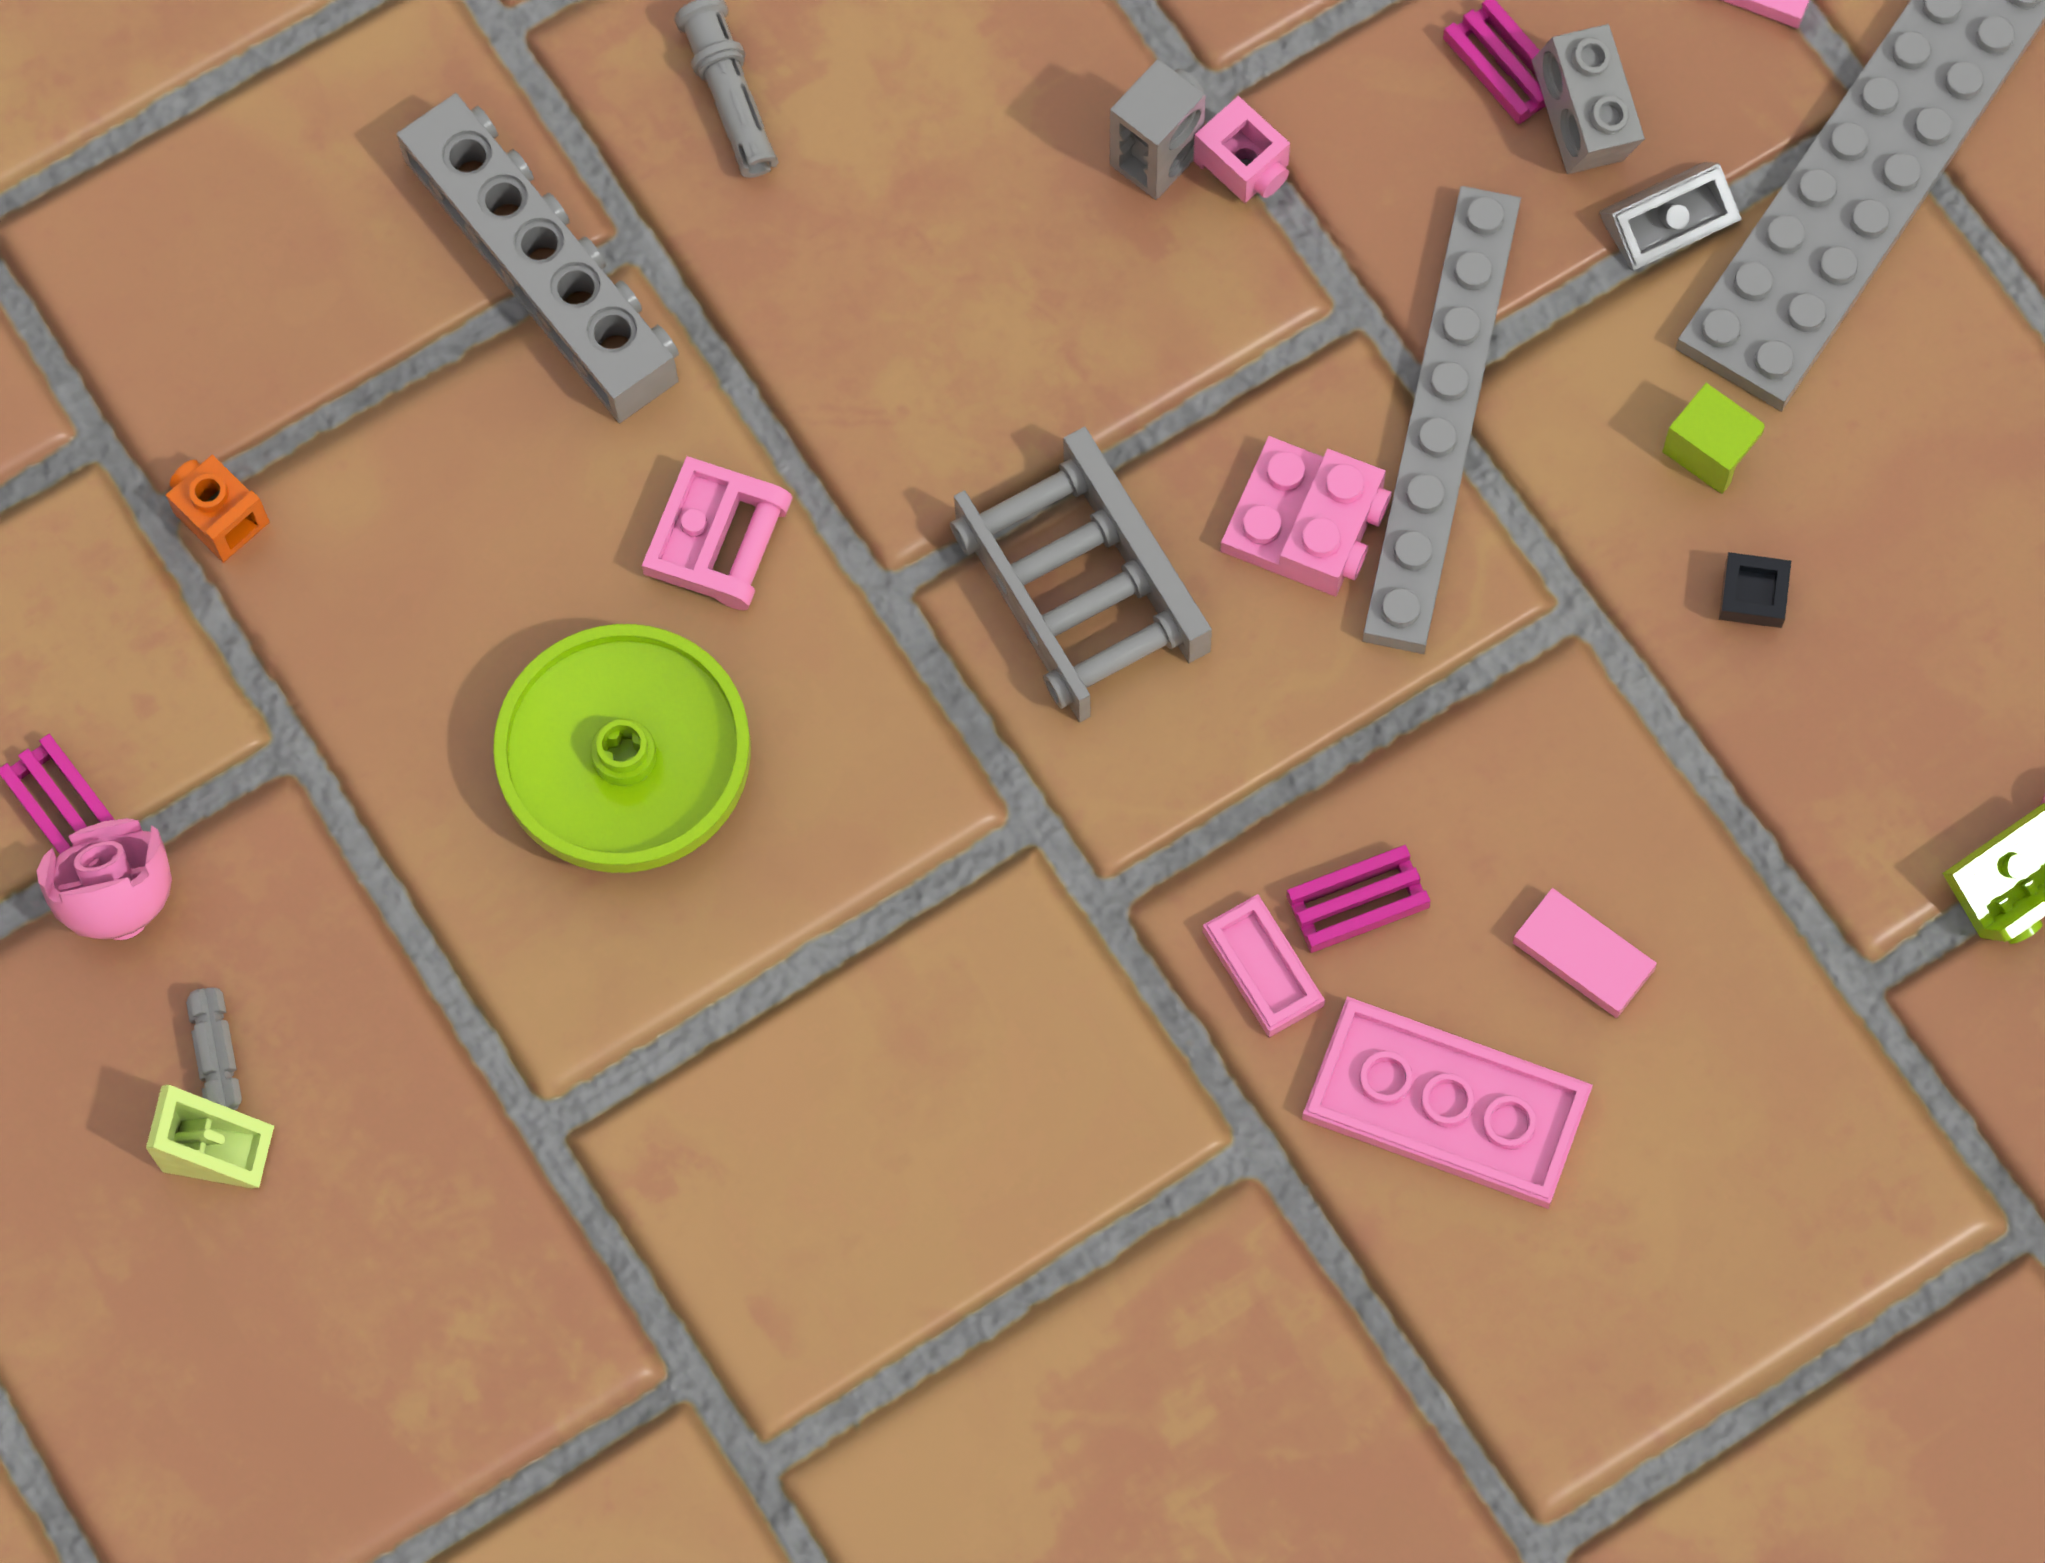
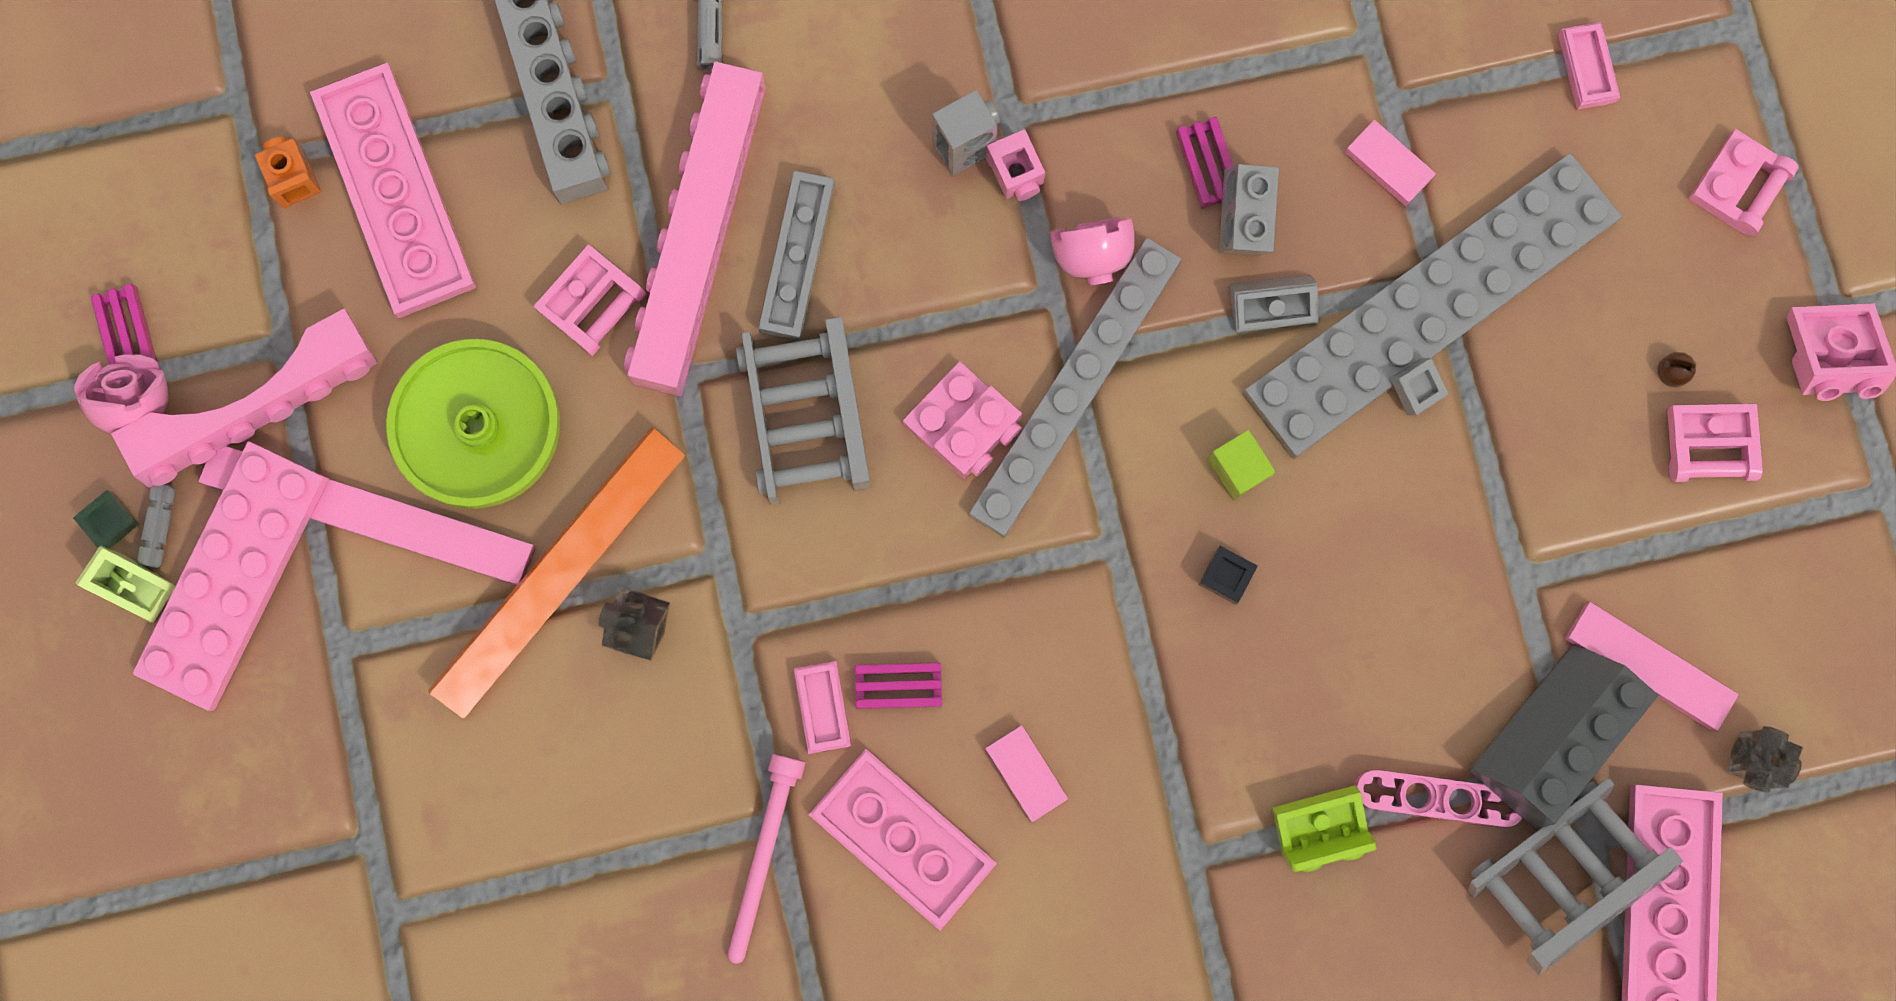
camera: 15 degrees right, 10 degrees up
(139, 1066) = (106, 520): none -> clear green plate
(201, 918) = (166, 444): none -> bright pink arch
(351, 1079) = (230, 576): none -> bright pink plate
(378, 481) = (393, 190): none -> bright pink plate
(511, 930) = (402, 525): none -> bright pink tile
(816, 914) = (556, 573): none -> orange tile
(831, 388) = (696, 229): none -> bright pink brick
(955, 937) = (634, 623): none -> clear smoke brick
(985, 374) = (797, 256): none -> light grey plate
(1247, 1069) = (784, 774): none -> bright pink piece
(1397, 222) = (1095, 248): none -> bright pink cylinder
(1914, 252) = (1419, 386): none -> light grey plate

